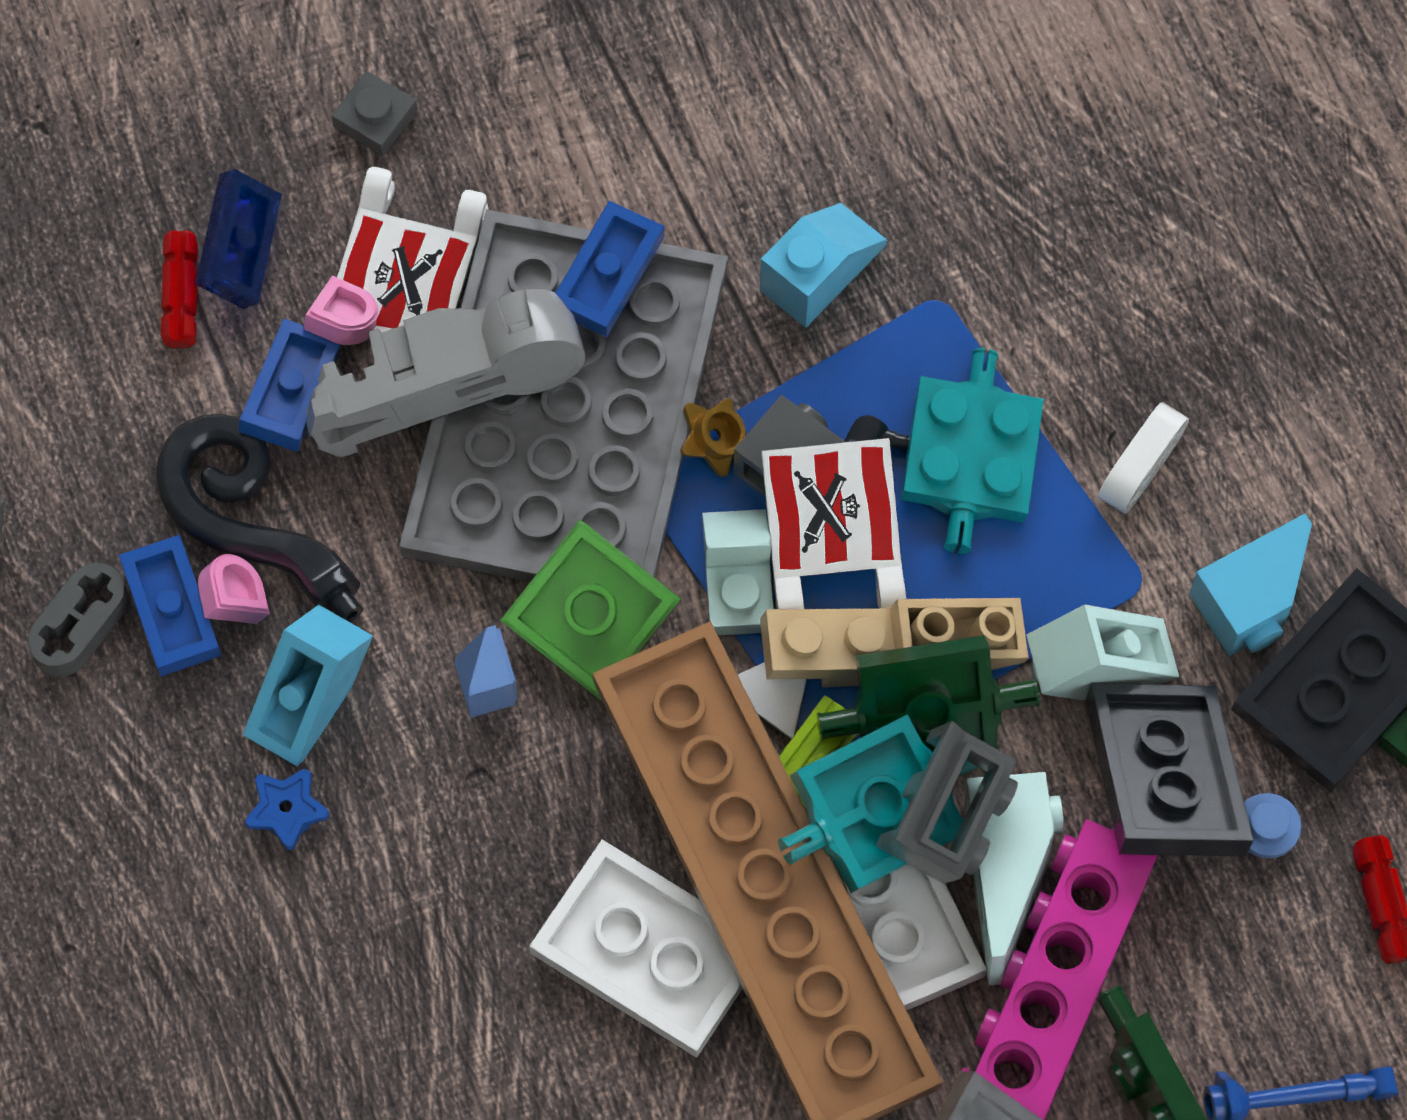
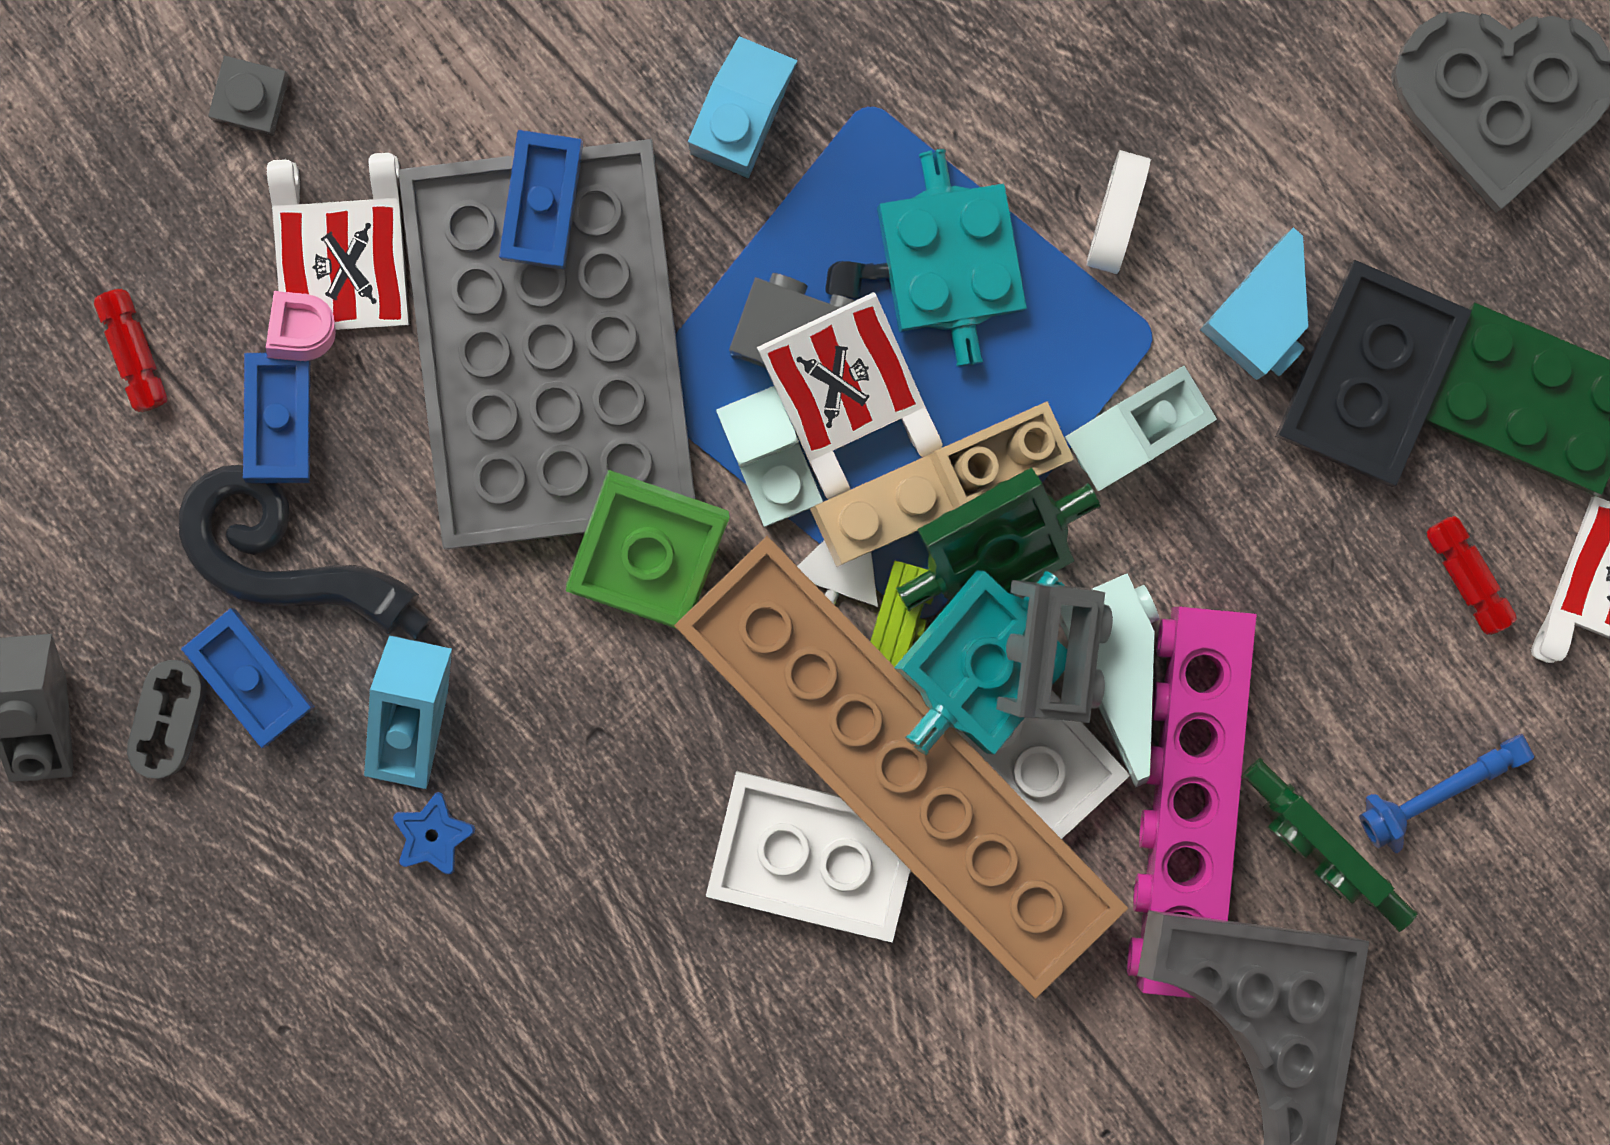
camera: 15 degrees left, 20 degrees up
(232, 591) = (300, 643): bright pink tile -> none
(238, 239) = (168, 281): clear blue plate -> none
(445, 365) = (420, 357): light grey piece -> none
(486, 674) = (570, 643): medium blue slope -> none
(699, 442) = (718, 327): pearl gold plate -> none
(1168, 770) = (1240, 530): plate -> none
(1273, 825) = (1343, 541): medium blue plate -> none

